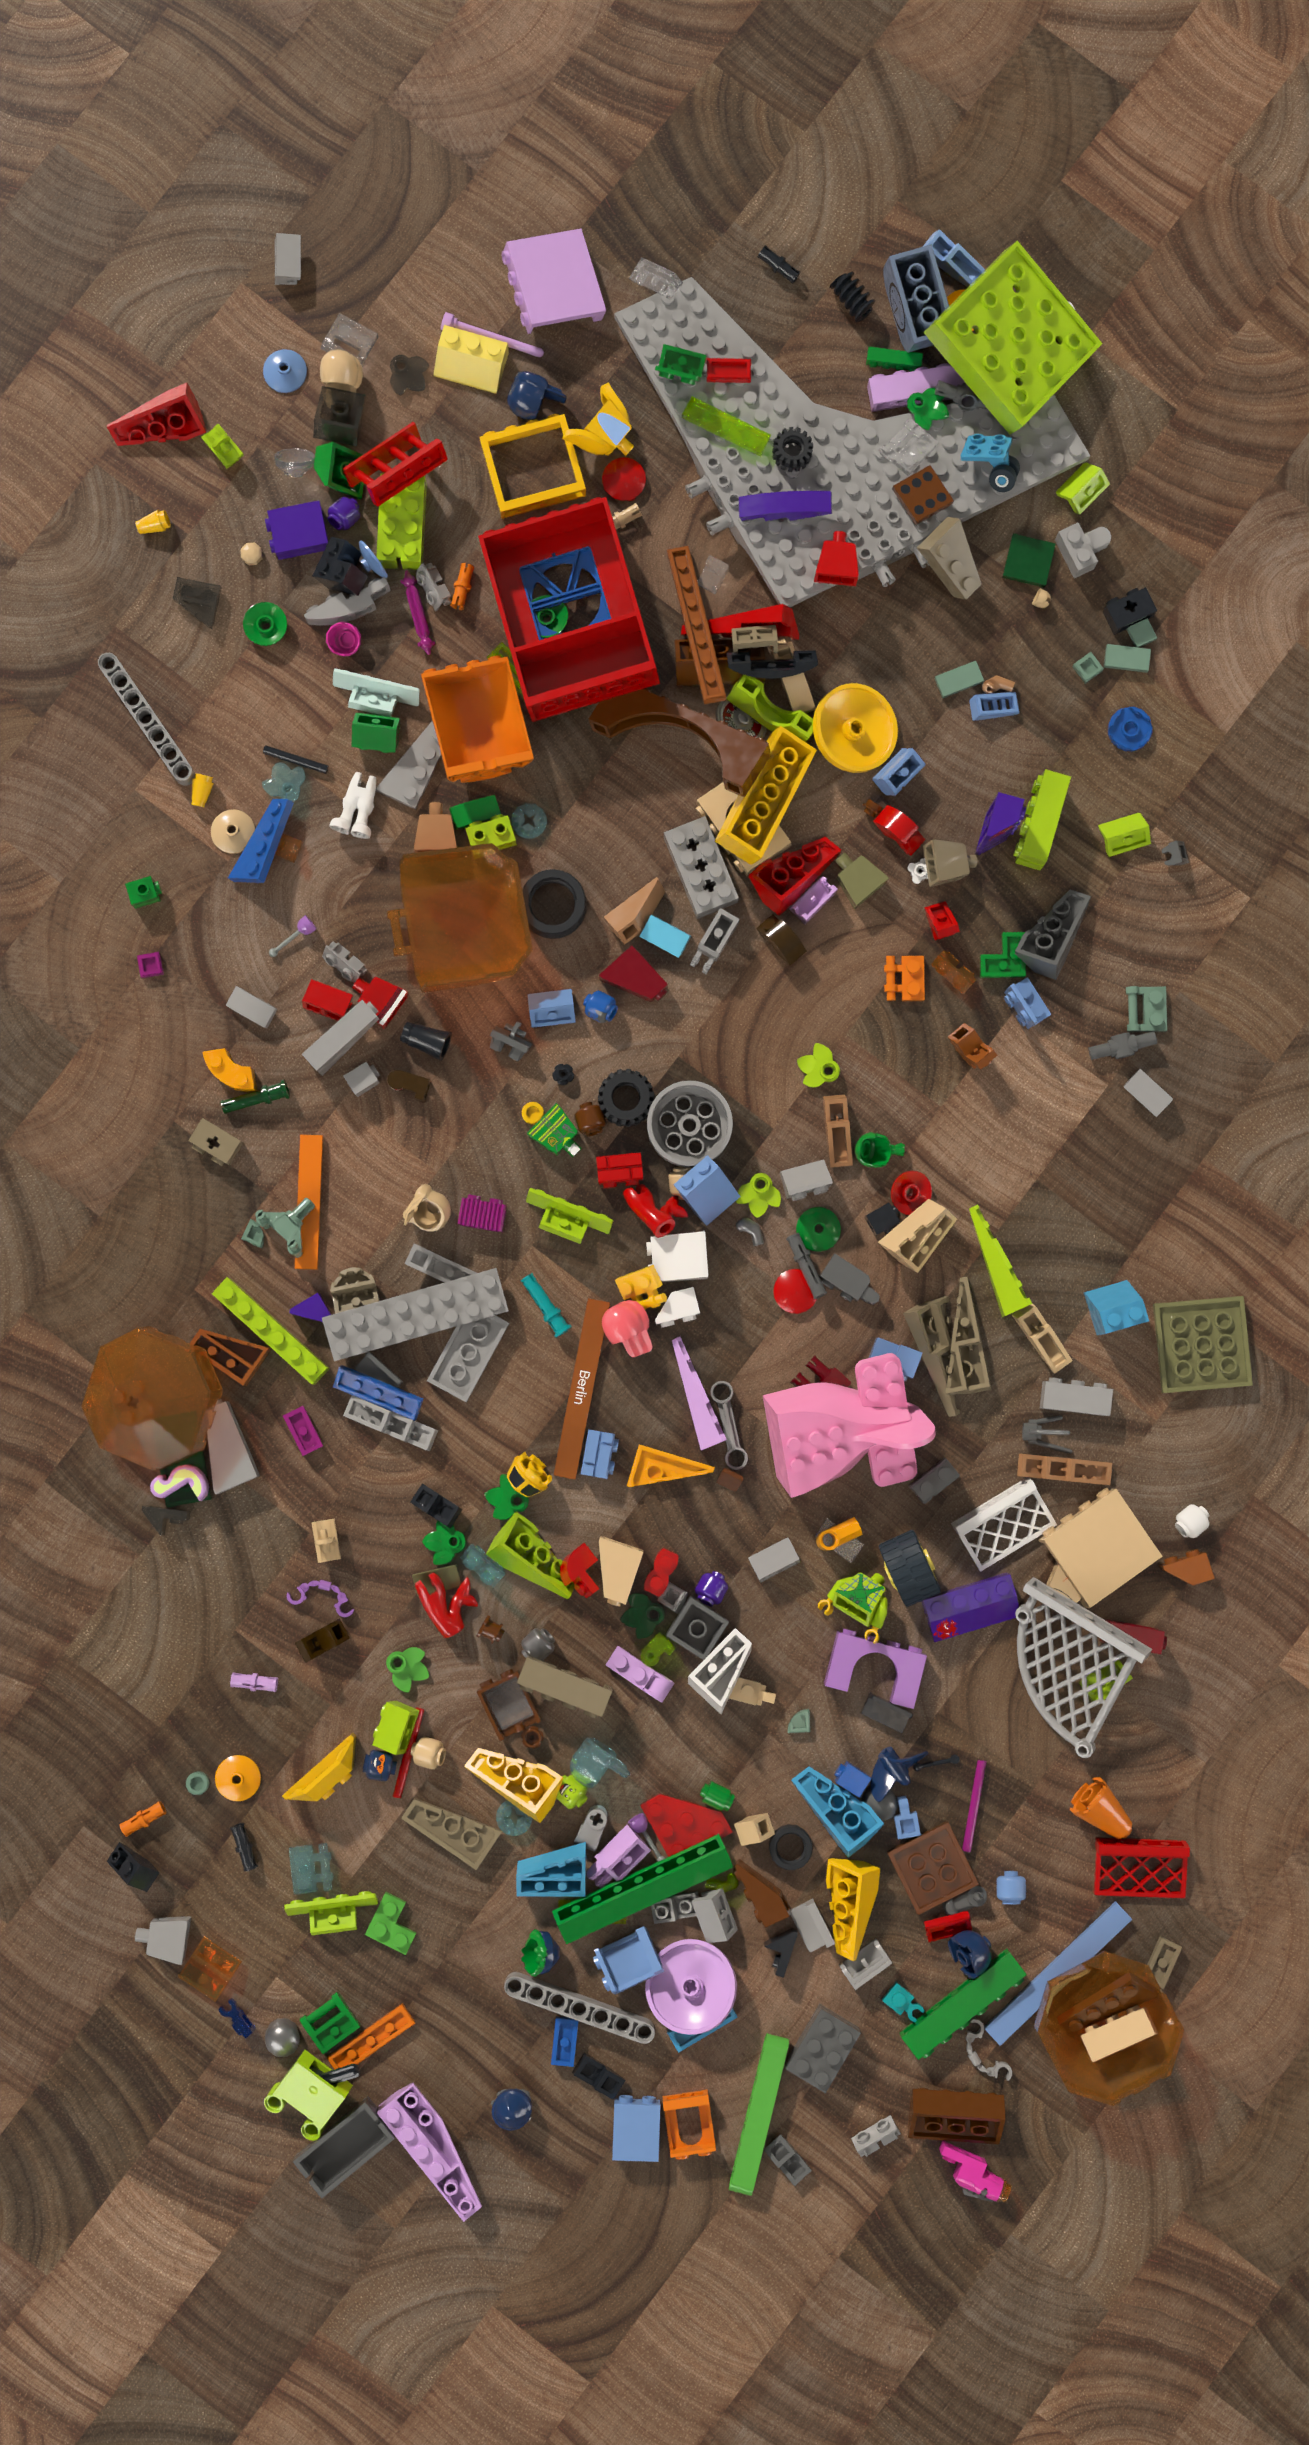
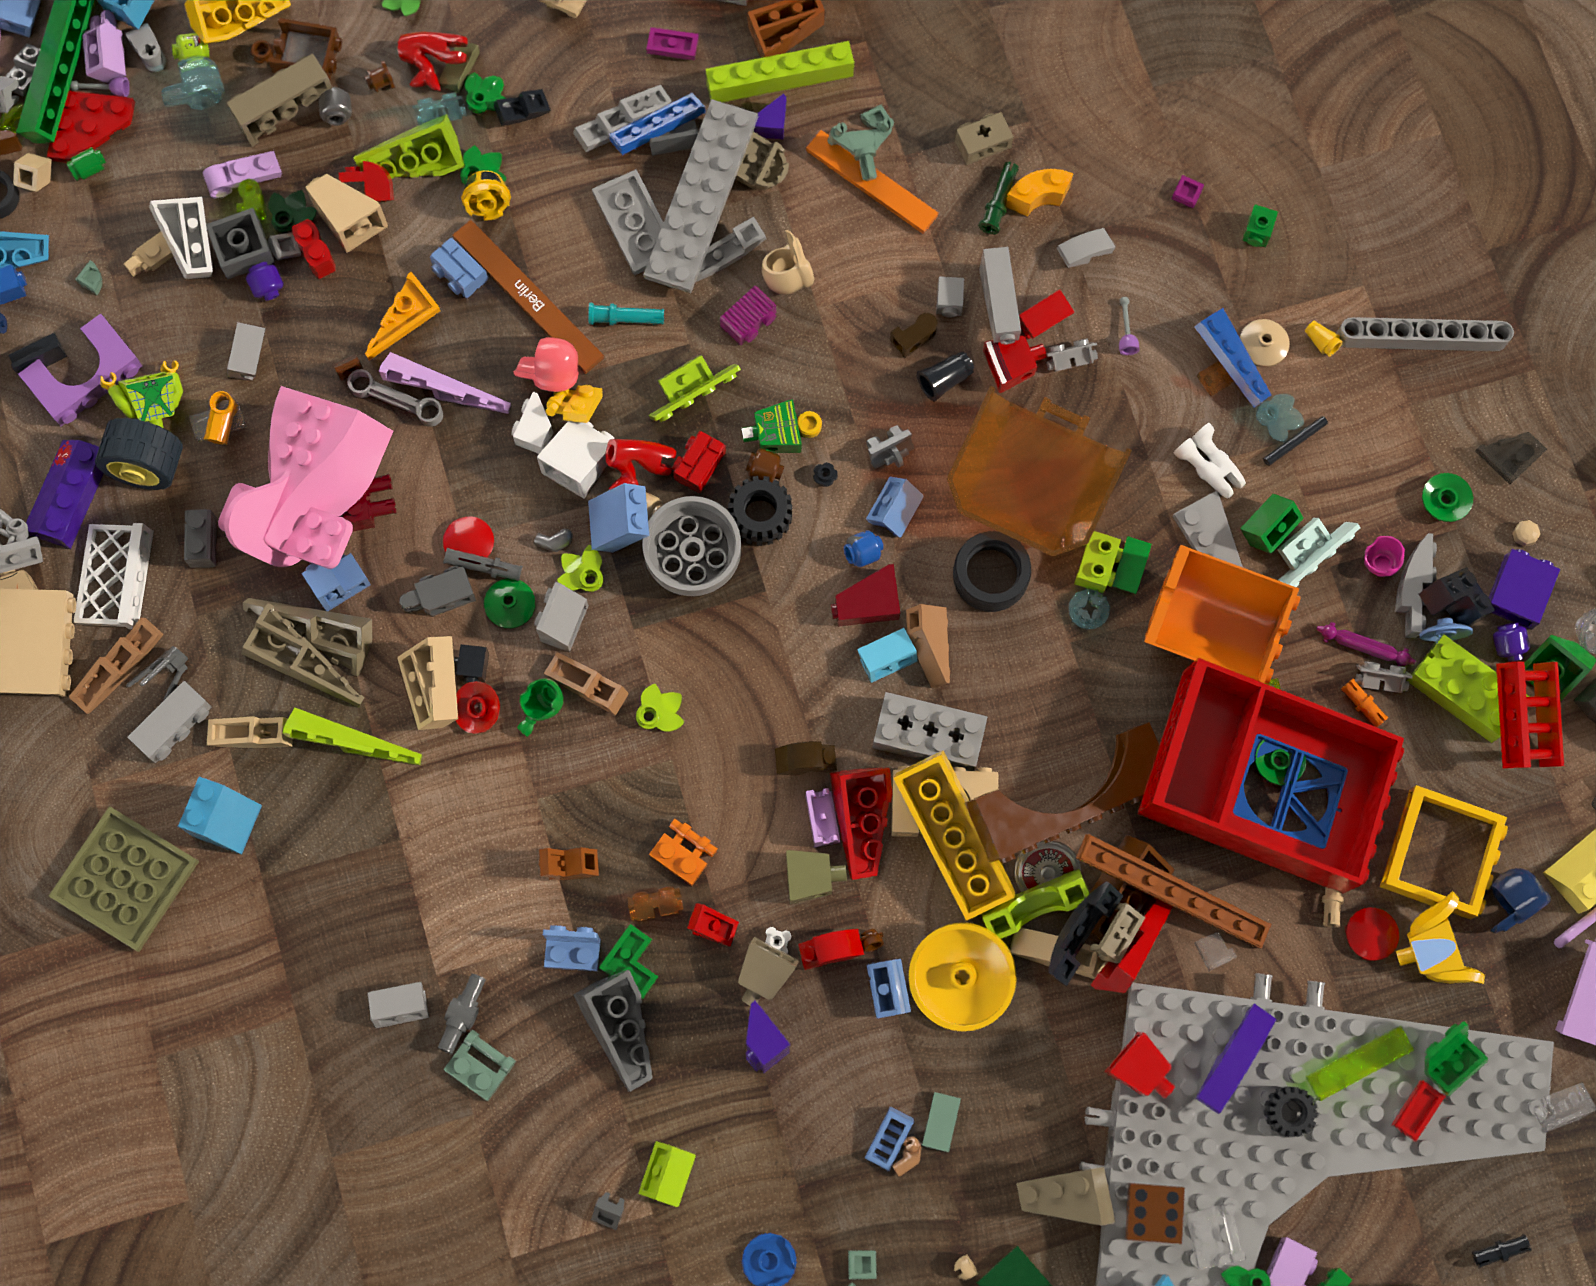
camera: 130 degrees right, 10 degrees down
(435, 830) = (1136, 514): medium nougat torso -> none
(715, 938) = (850, 696): light grey hinge -> none
(1043, 818) = (738, 1094): lime piece -> none

